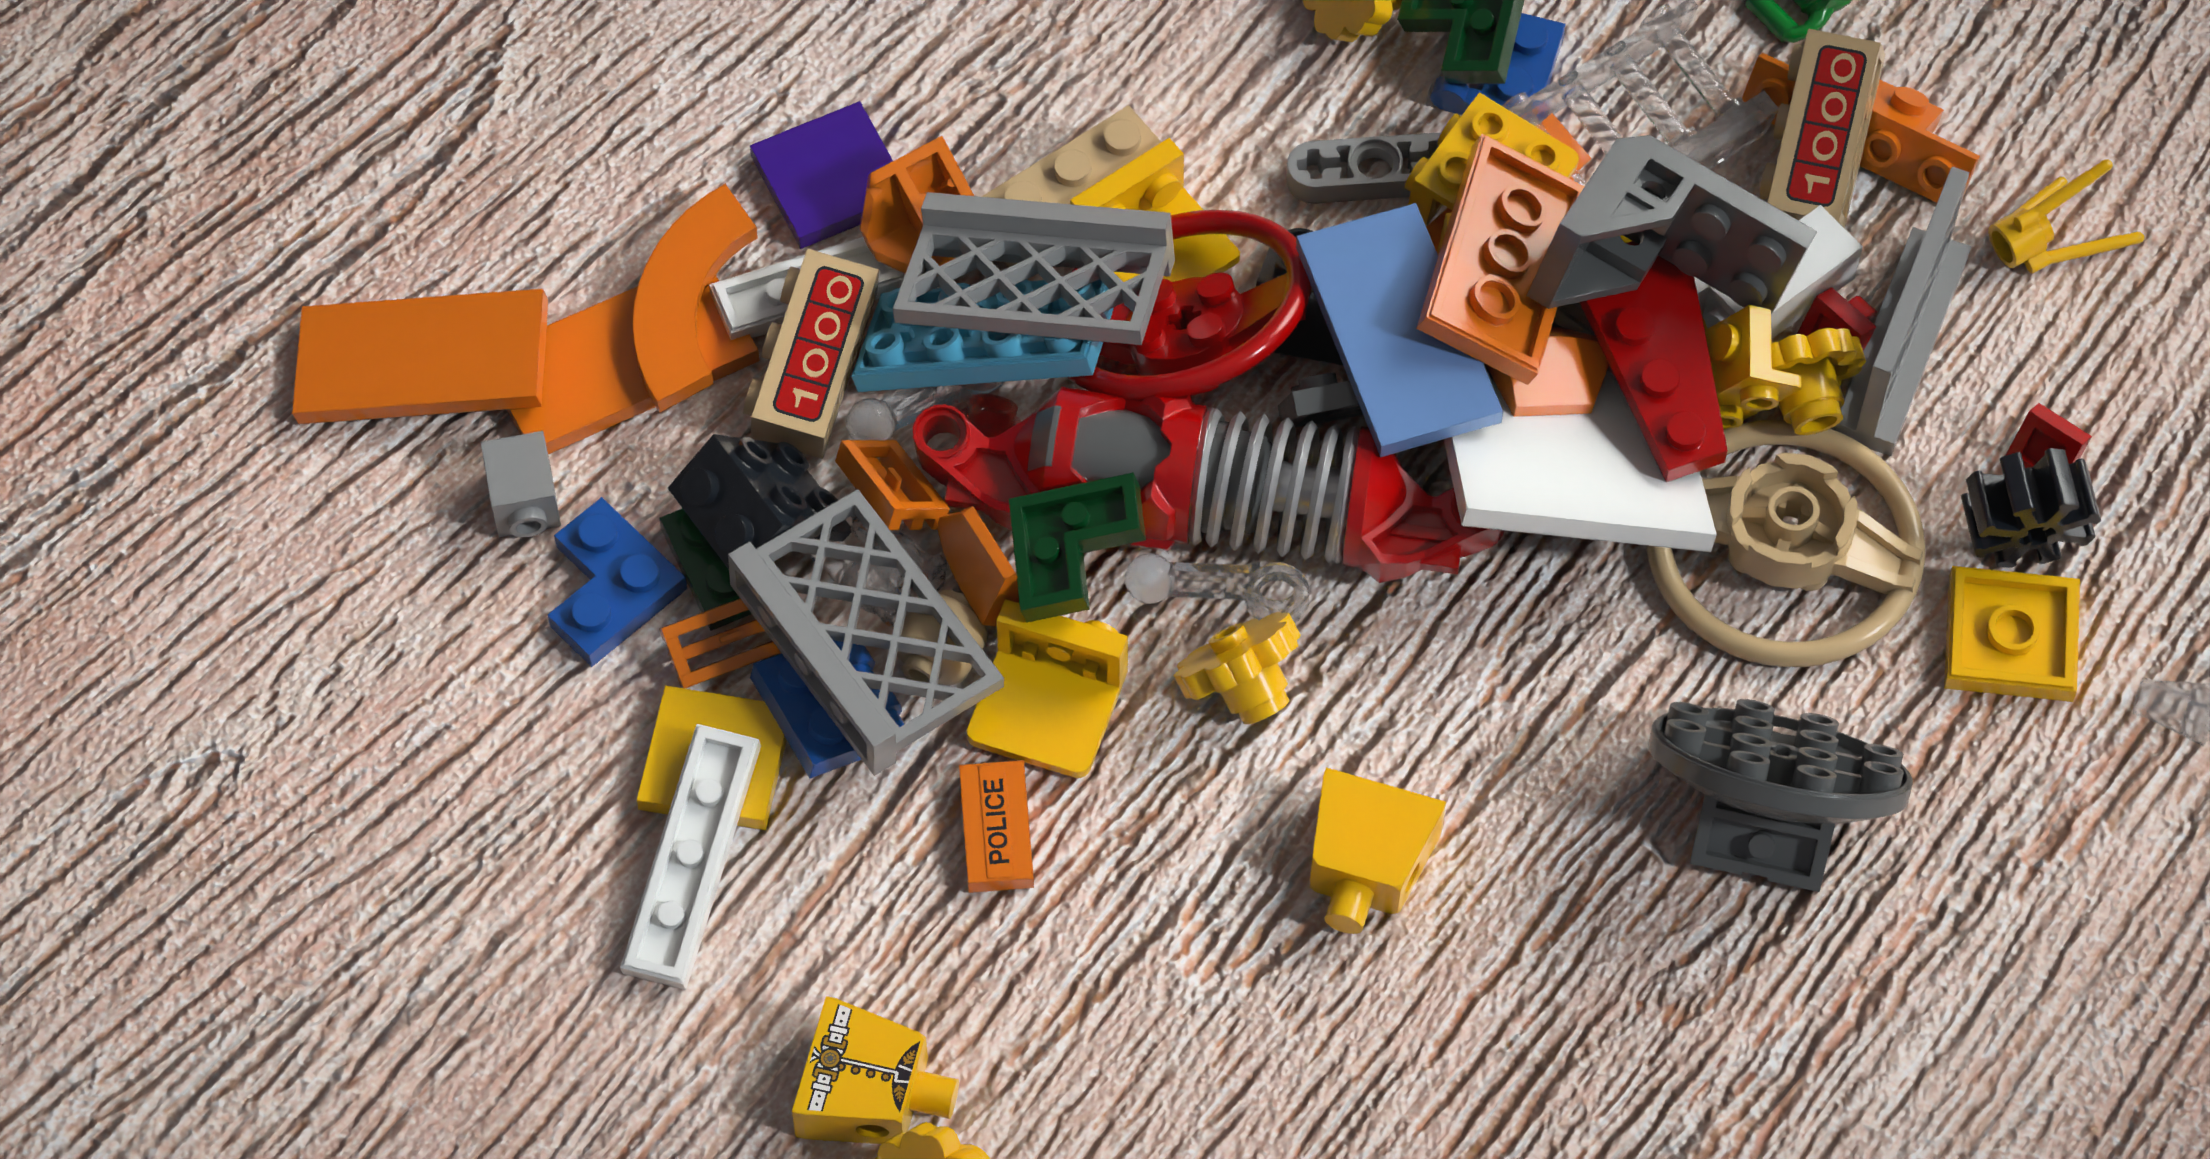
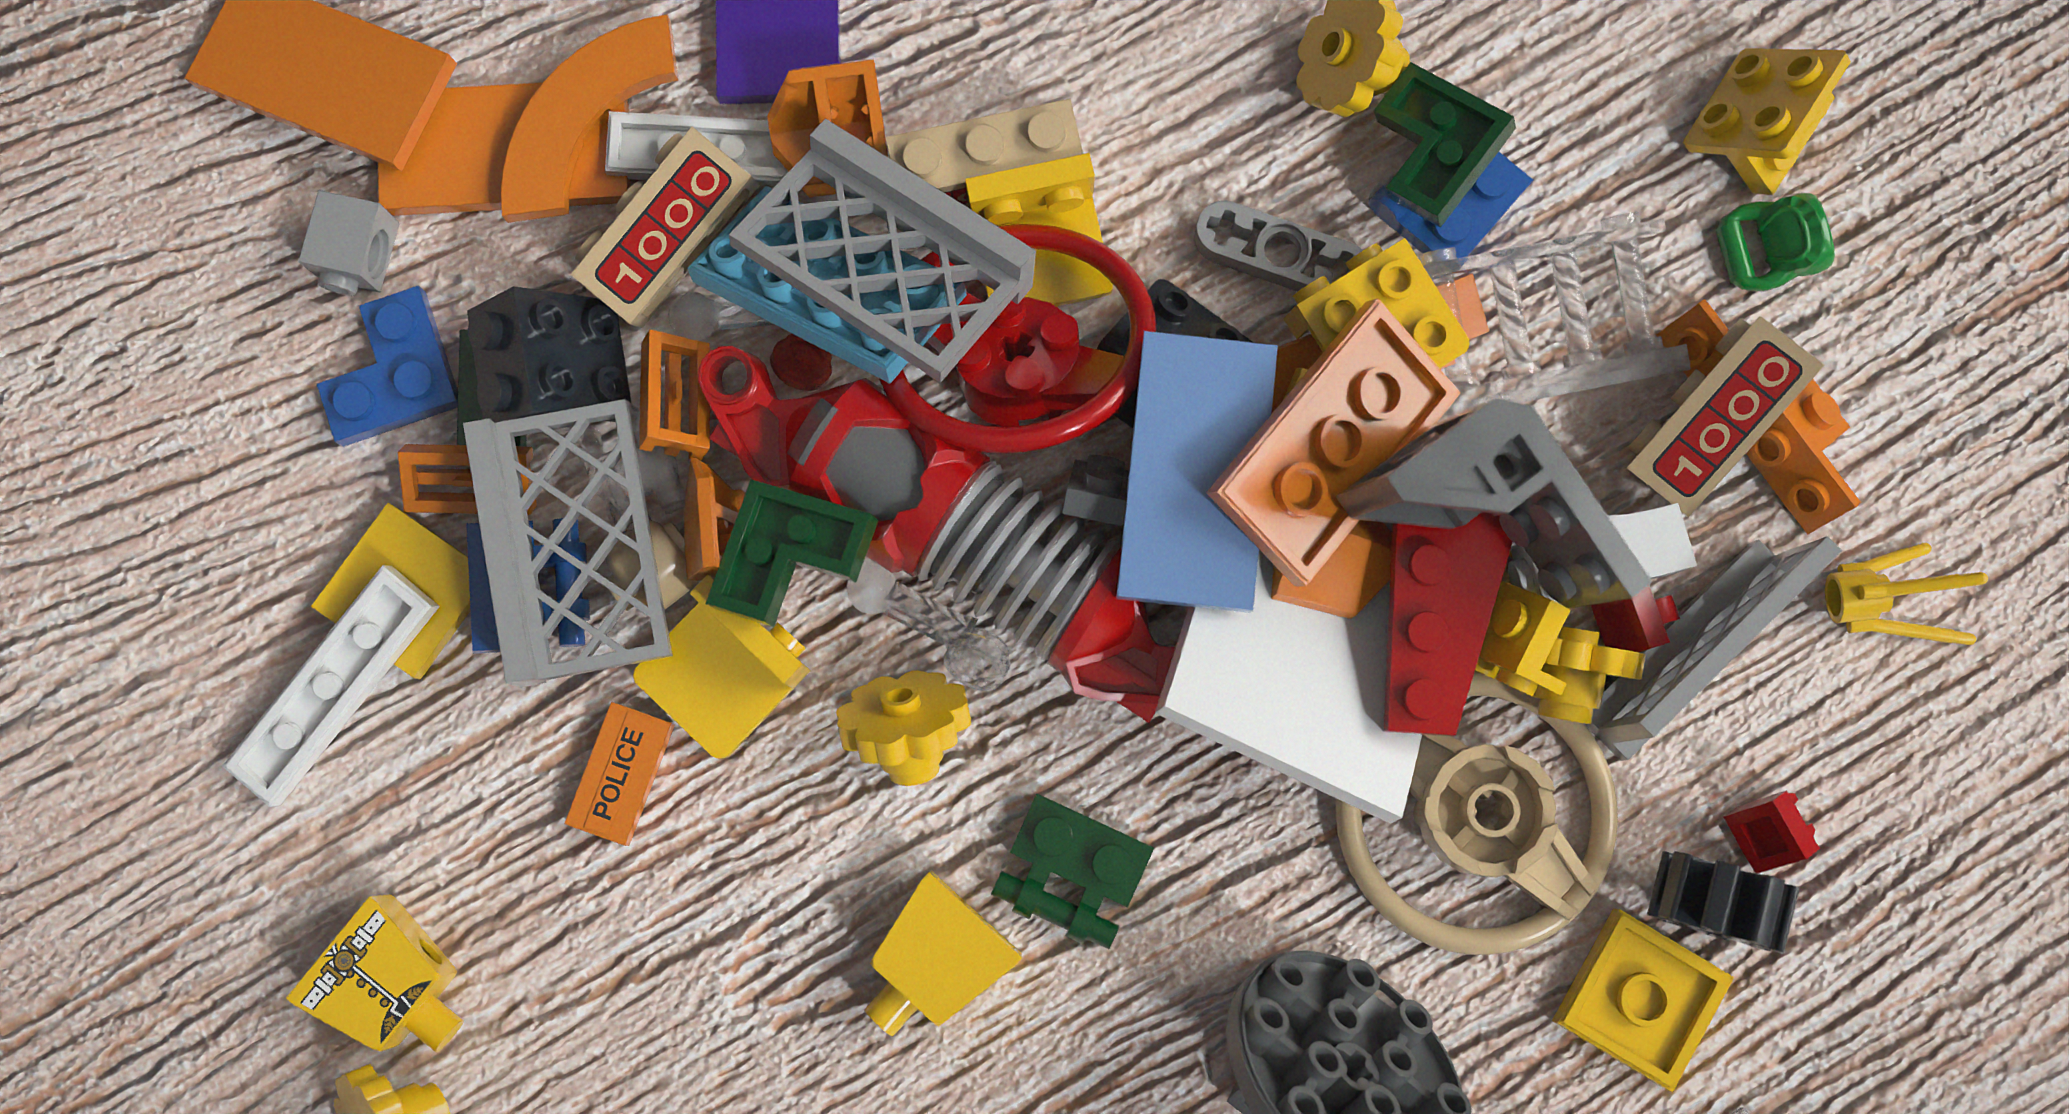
camera: 20 degrees right, 20 degrees up
(1452, 719) = (1081, 852): none -> dark green plate

